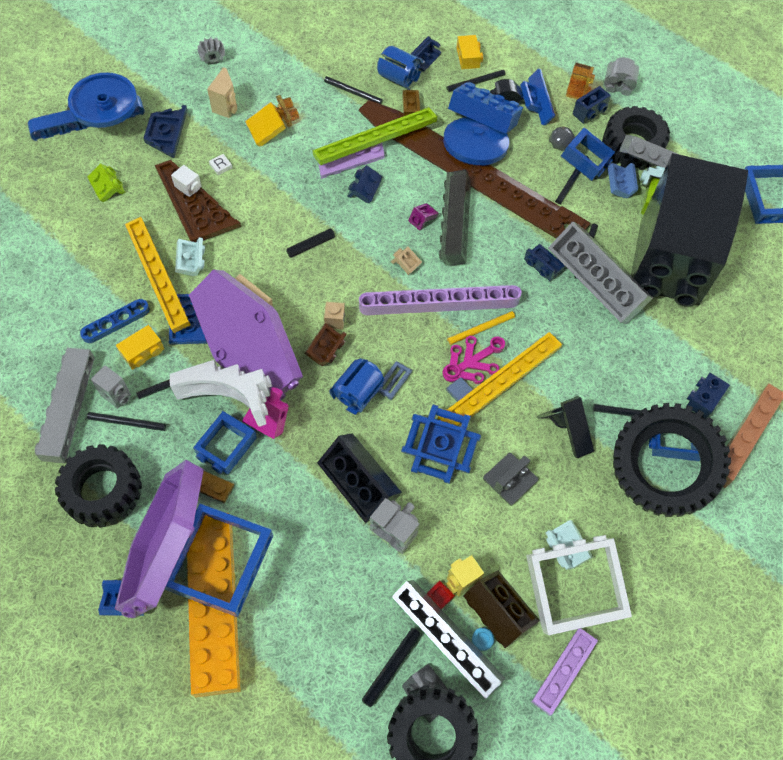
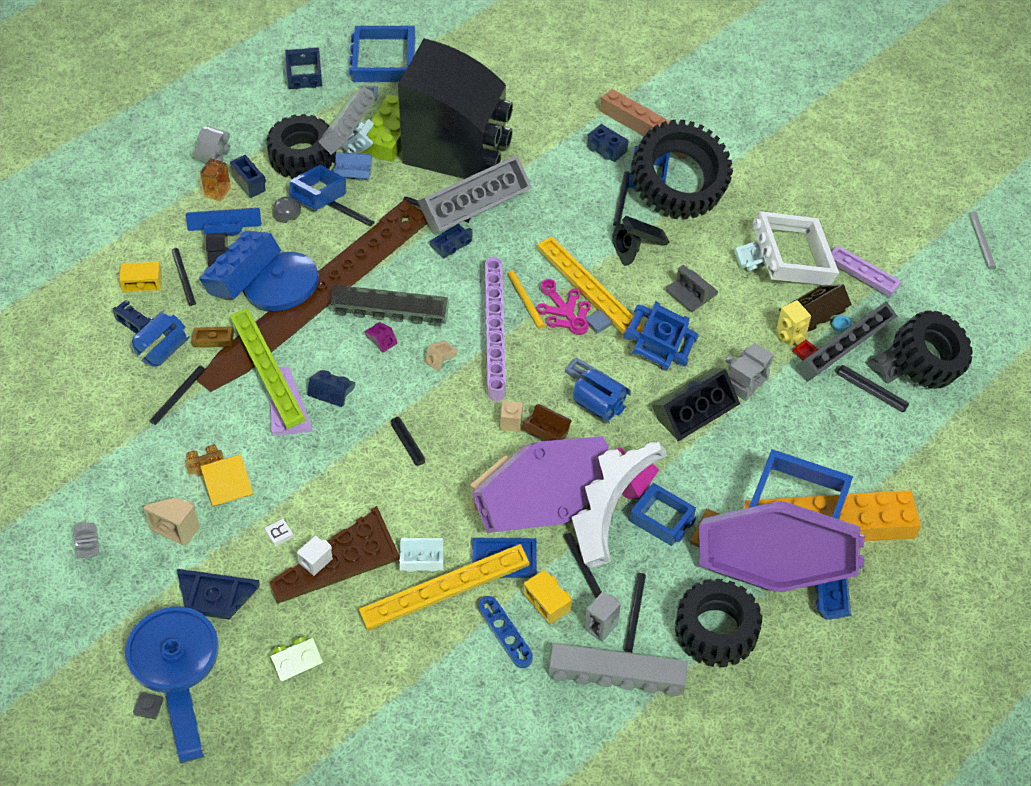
camera: 85 degrees left, 10 degrees down
(755, 127) = (310, 57): none -> dark blue window

